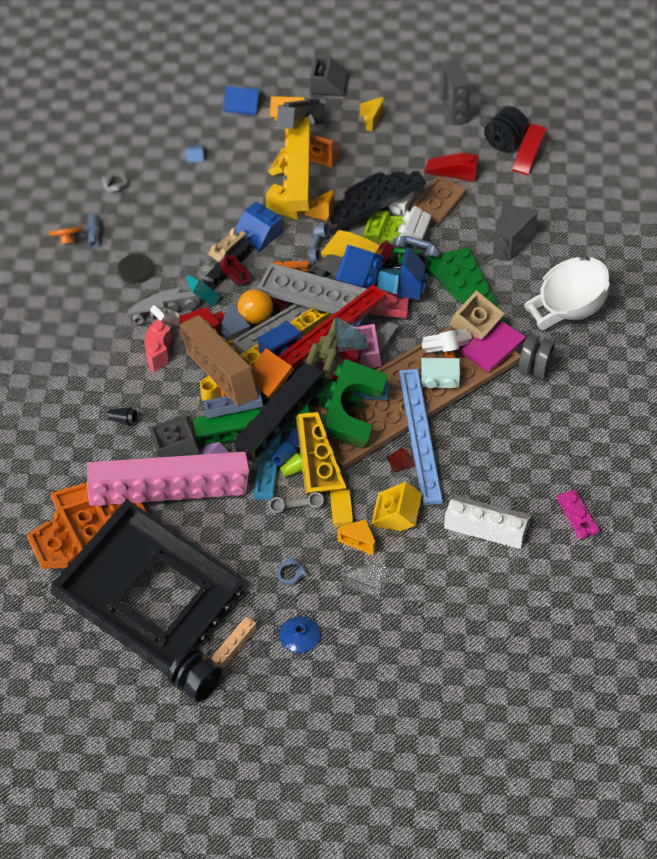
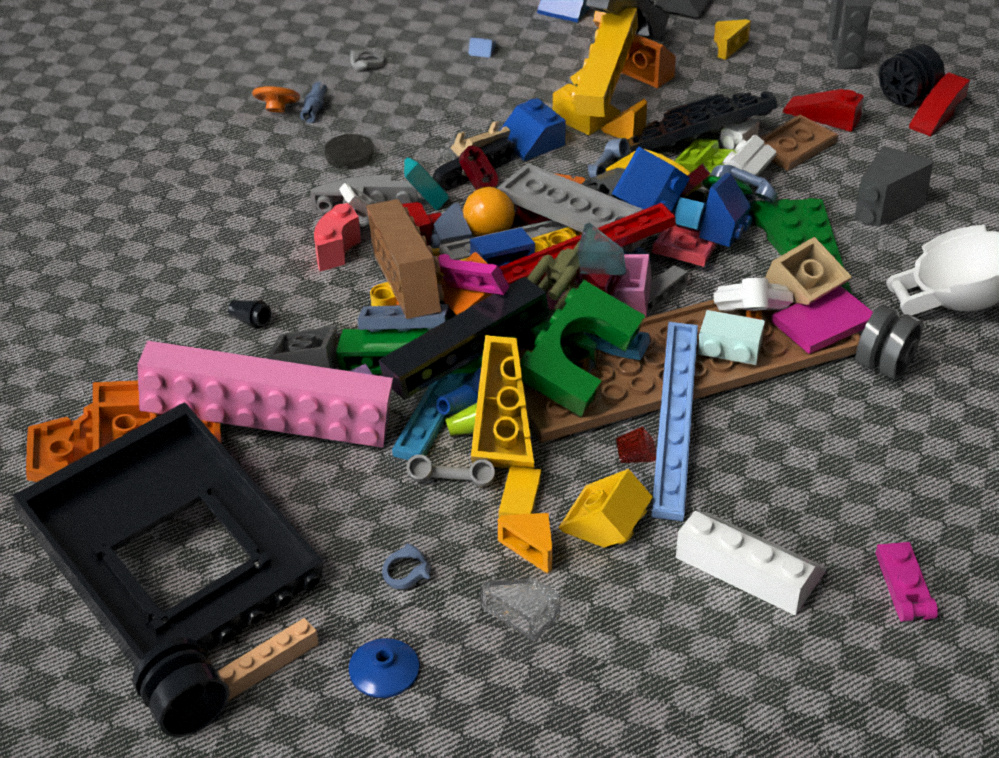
camera: 15 degrees right, 10 degrees down
(273, 369) = (472, 275): none -> dark pink plate

